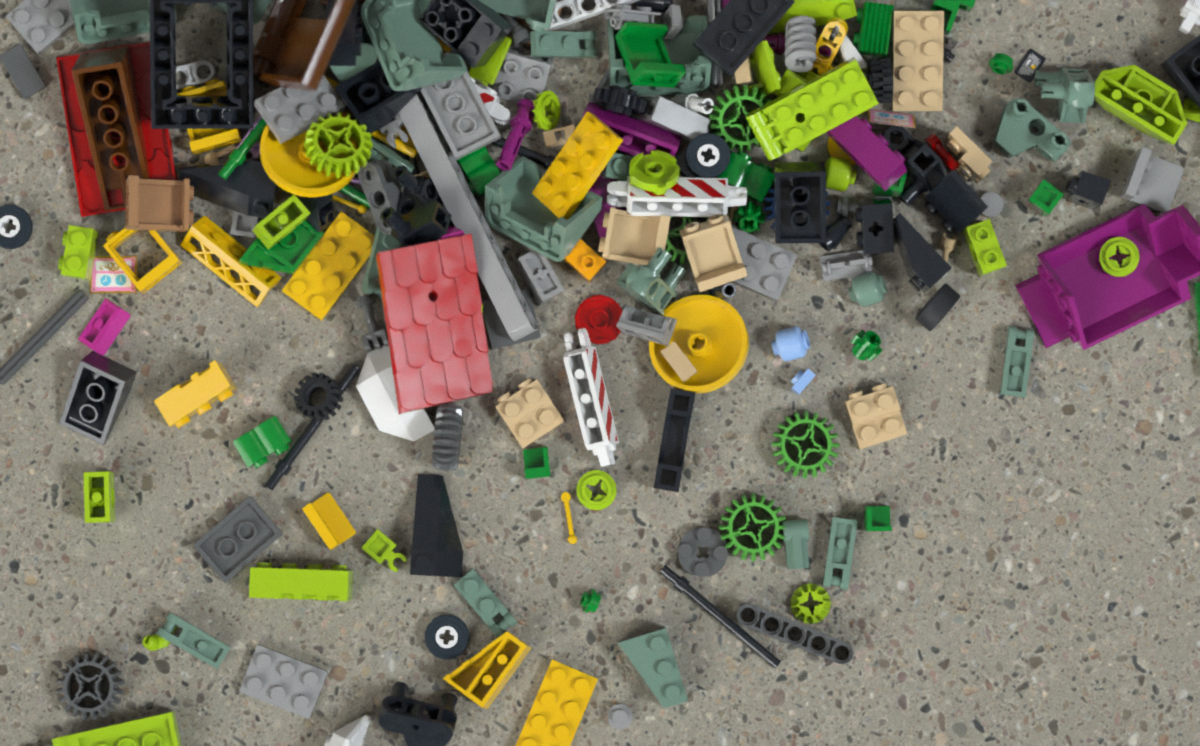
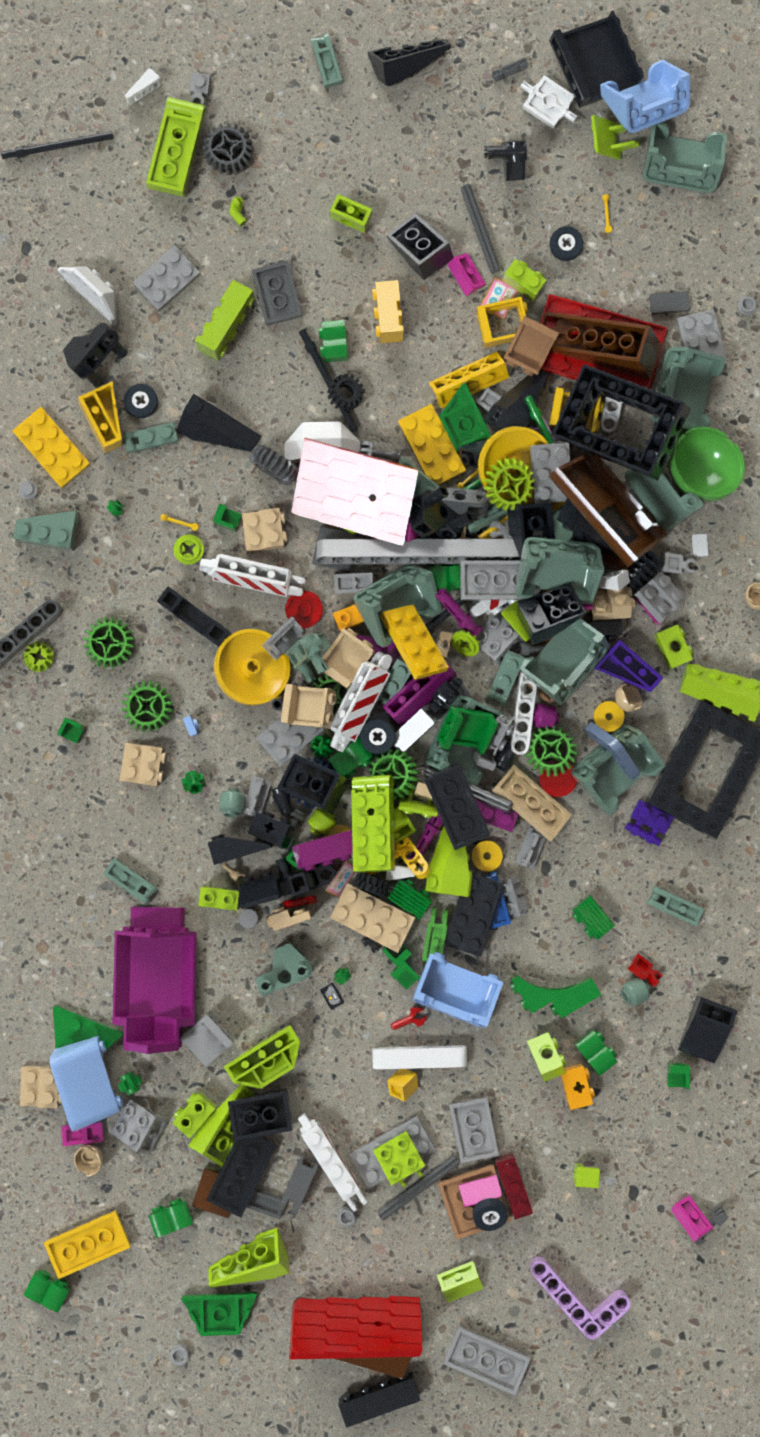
camera: 115 degrees right, 0 degrees up
(194, 641) = (223, 230): sand green plate -> none
(212, 158) = (545, 400): tan hand -> none
(281, 222) = (476, 422): lime brick -> none
(329, 521) = (258, 359): yellow panel -> none
(381, 548) = (222, 385): lime plate -> none
(642, 173) = (375, 688): lime plate -> none
(678, 361) = (246, 646): tan window -> none
(681, 584) = (94, 575): black bar -> none
(688, 549) = (102, 593): dark grey plate -> none
(693, 102) = (420, 745): white axle -> none
(791, 343) = (221, 731): light blue head -> none
(796, 539) = (87, 668): sand green piece -> none
(800, 43) = (424, 839): light grey piece -> none
(840, 552) = (62, 693): sand green plate -> none
(937, 307) = (194, 844): black tyre -> none
(1045, 197) = (232, 958): green panel -> none
(1073, 90) = (294, 1014): sand green piece -> none
(1087, 190) = (223, 989): black brick -> none
(1125, 247) = (158, 992): lime gear -> none

